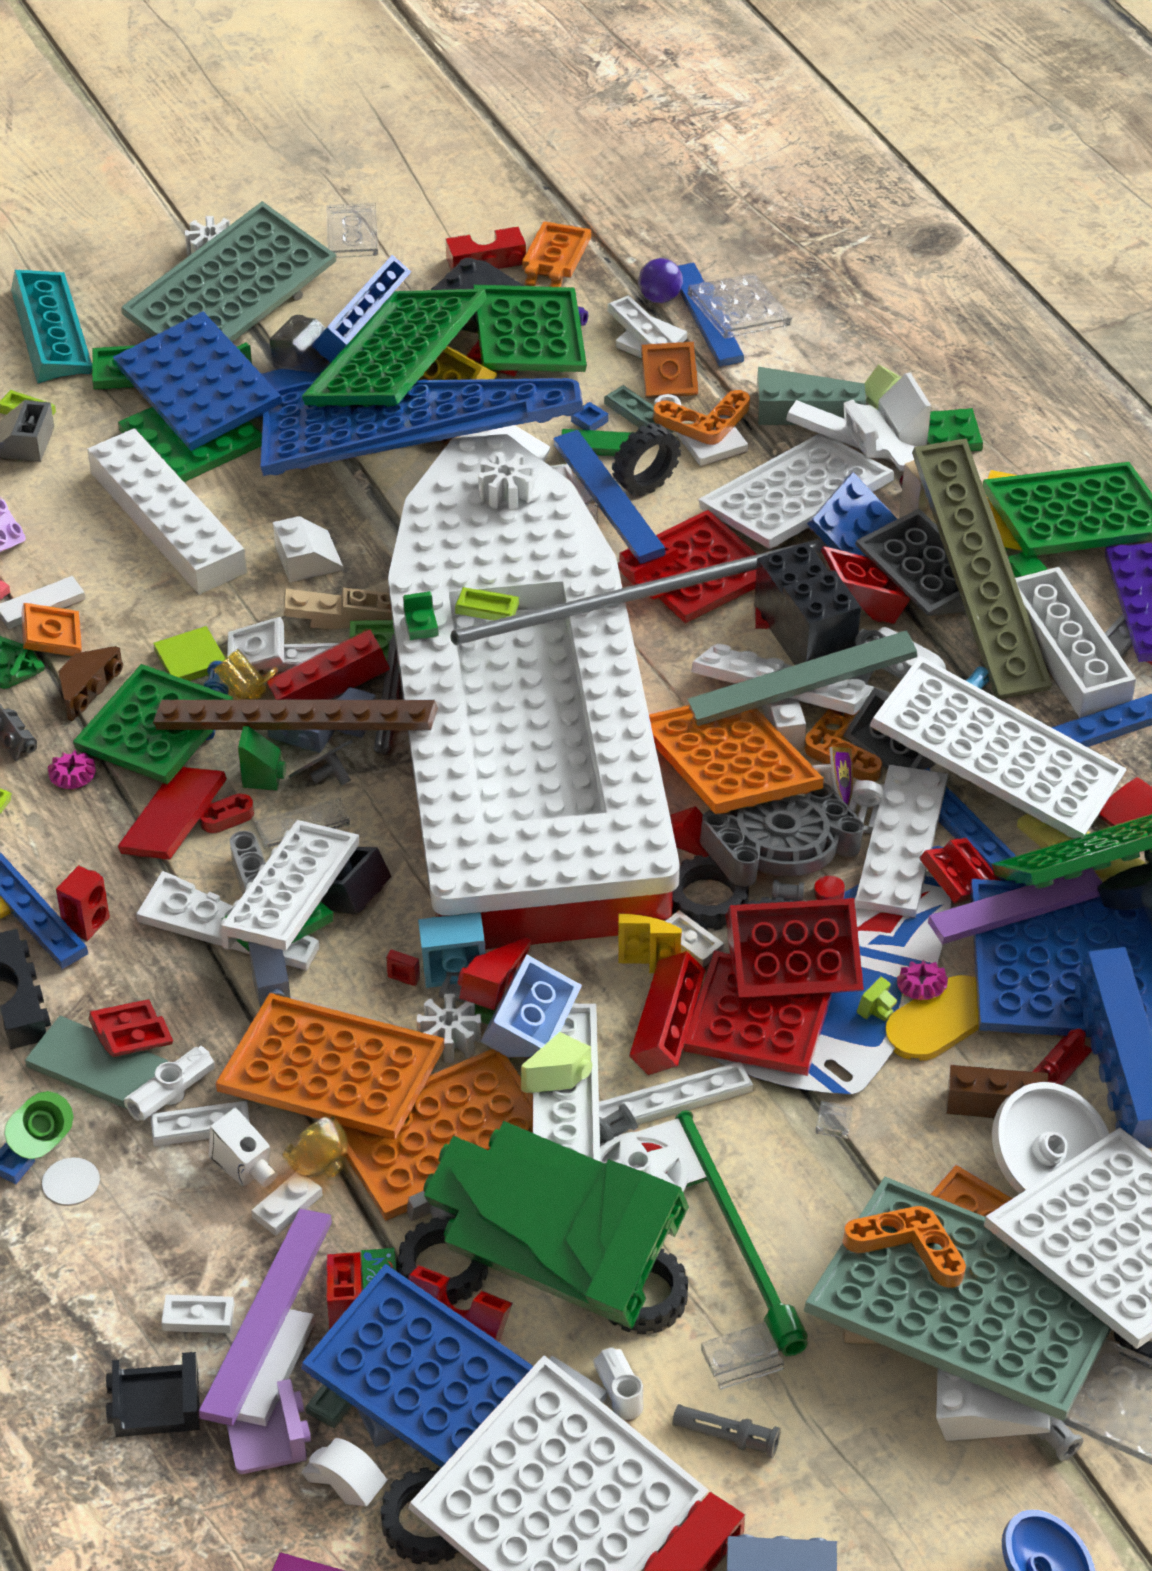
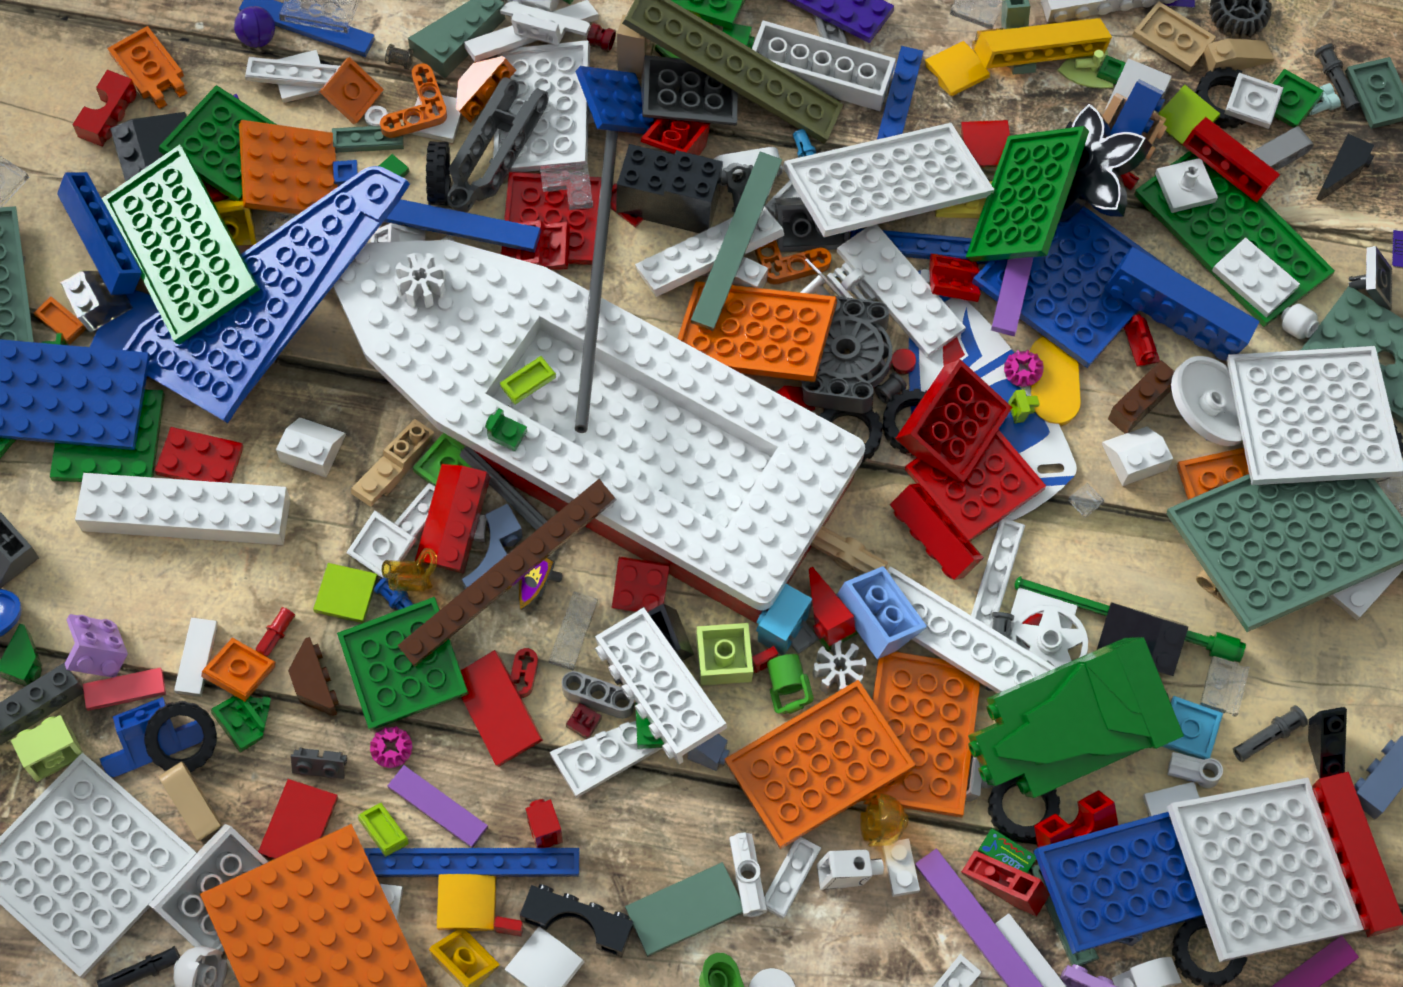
camera: 55 degrees left, 20 degrees up
(43, 834) = (437, 806): none -> medium lavender tile
(109, 633) = (275, 631): none -> red axle
(130, 1028) = (678, 868): red slope -> none
(219, 880) = (583, 721): none -> dark red tile
(227, 494) = (198, 457): none -> red plate
(259, 761) = (504, 620): green slope -> none
(261, 350) = (60, 320): none -> orange tile
(375, 927) = (724, 654): none -> yellowish green brick
(389, 829) = (639, 584): none -> red plate
(397, 994) = (787, 678): none -> bright green piece
(548, 352) = (285, 166): none -> orange plate
(556, 1065) = (946, 627): yellowish green slope -> none
(578, 961) = (847, 552): none -> tan piece
(646, 940) = (875, 498): yellow slope -> none
(667, 1357) = (1198, 727): none -> medium azure tile
(696, 939) = (881, 471): white plate -> none
(722, 1250) = (1161, 634): none -> black slope
(738, 541) = (571, 177): none -> clear plate
(743, 379) = (399, 56): none -> clear smoke bush
(754, 466) = (494, 117): none -> dark grey piece
(768, 440) = (479, 84): none -> slope
(768, 1476) = (1328, 741): none -> black slope
(914, 1226) = (1237, 525): orange beam -> none
(926, 1131) = (1138, 455): none -> white slope

